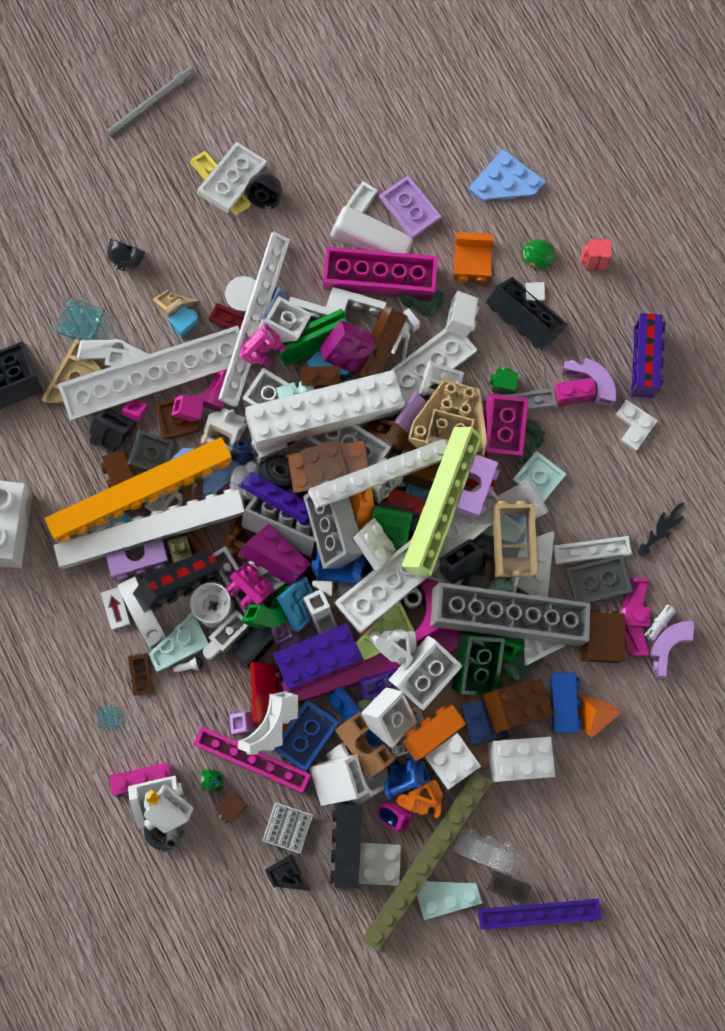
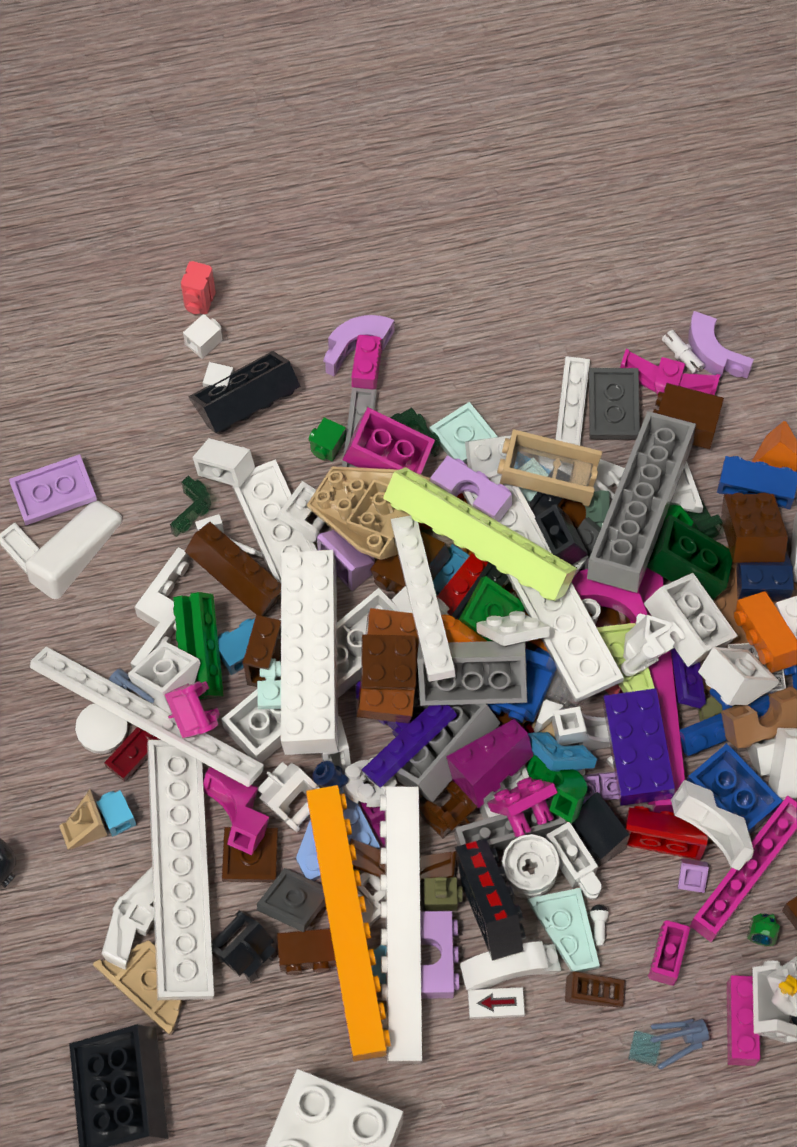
camera: 75 degrees left, 10 degrees down
(79, 320) = (67, 954): clear light blue plate -> none
(126, 747) = (691, 1031): none -> sand blue plant
(134, 409) = (223, 908): dark pink plate -> none
(176, 717) = (669, 952): none -> dark pink brick
(277, 471) = (367, 739): wheel -> none
(347, 346) = (228, 603): magenta brick -> none
(380, 272) = (133, 546): dark pink brick -> none
(389, 432) = (358, 586): reddish brown brick -> none
(473, 257) = (148, 434): orange panel -> none
(505, 180) = (55, 369): light blue plate -> none
(538, 254) = (170, 357): green hair -> none
(562, 271) = (203, 335): none -> white brick
(639, 423) = (426, 306): white plate -> none
(647, 355) = (347, 269): dark purple brick -> none
(661, 526) = (562, 318): black piece -> none

